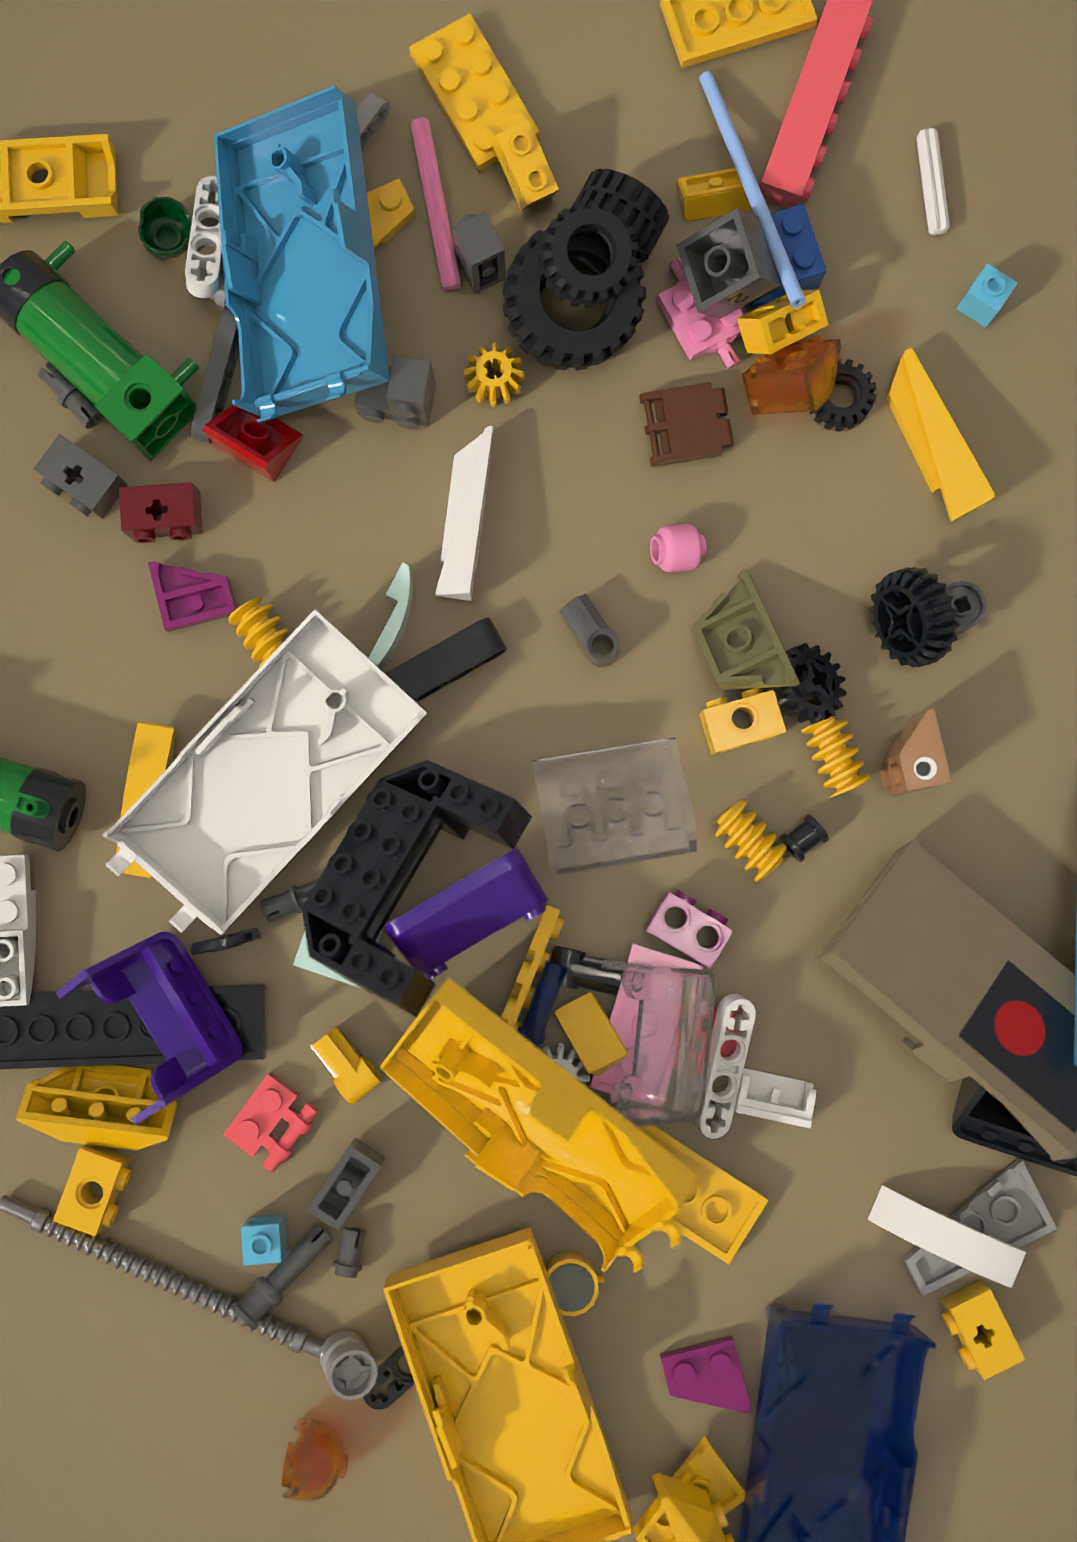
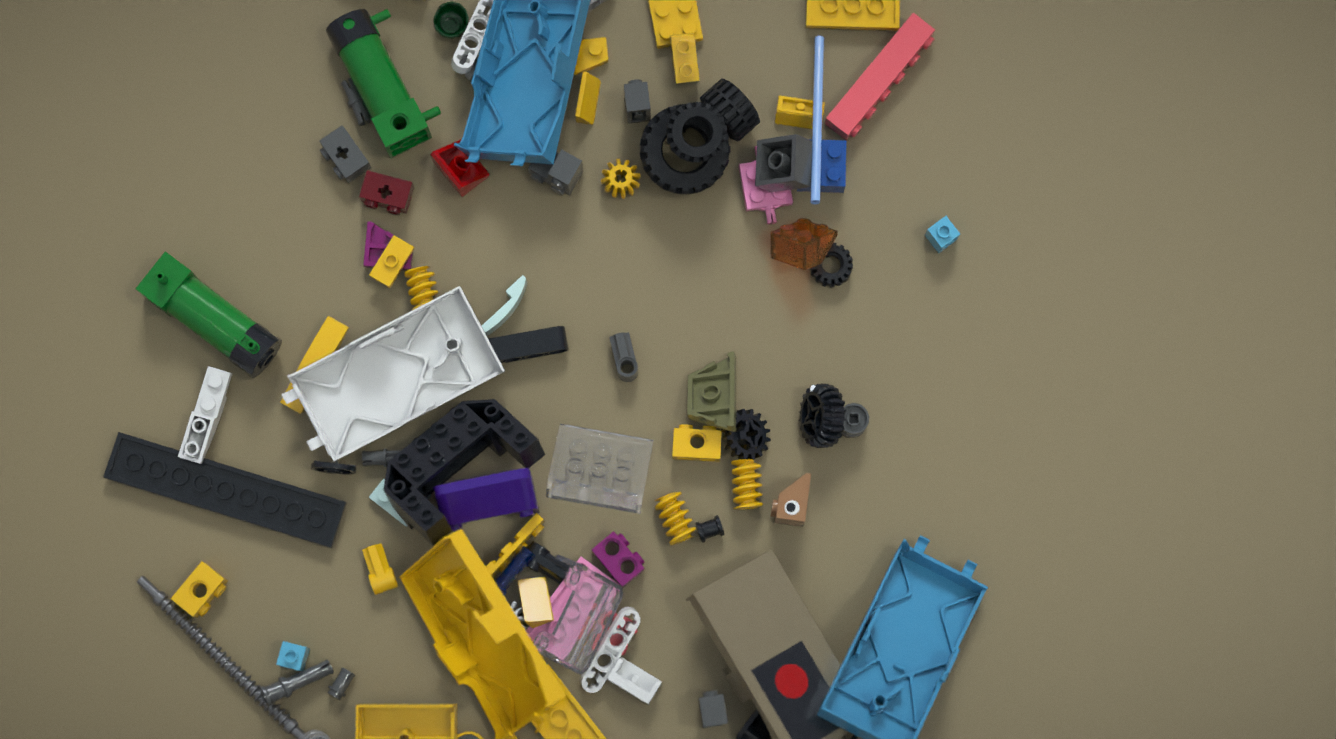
camera: 15 degrees right, 5 degrees down
(96, 1107) = (222, 541): yellow wedge -> none
(173, 1007) = (287, 494): dark purple windscreen -> none
(203, 609) = (391, 261): none -> yellow plate
(217, 375) = (450, 121): dark grey beam -> none
(262, 1114) = (317, 582): coral plate -> none
(346, 1184) = (354, 639): dark grey brick -> none
(405, 276) = (587, 99): none -> yellow slope
(435, 204) = (622, 61): bright pink axle -> none
(465, 518) = (572, 260): white wedge -> none
(677, 547) = (695, 324): bright pink head -> none
(687, 423) = (729, 249): reddish brown plate -> none
(780, 324) = (799, 210): yellow brick -> none
(908, 1105) = (712, 709): none -> dark grey brick
(933, 181) = (937, 152): white axle -> none
(936, 440) = (878, 312): yellow wedge -> none

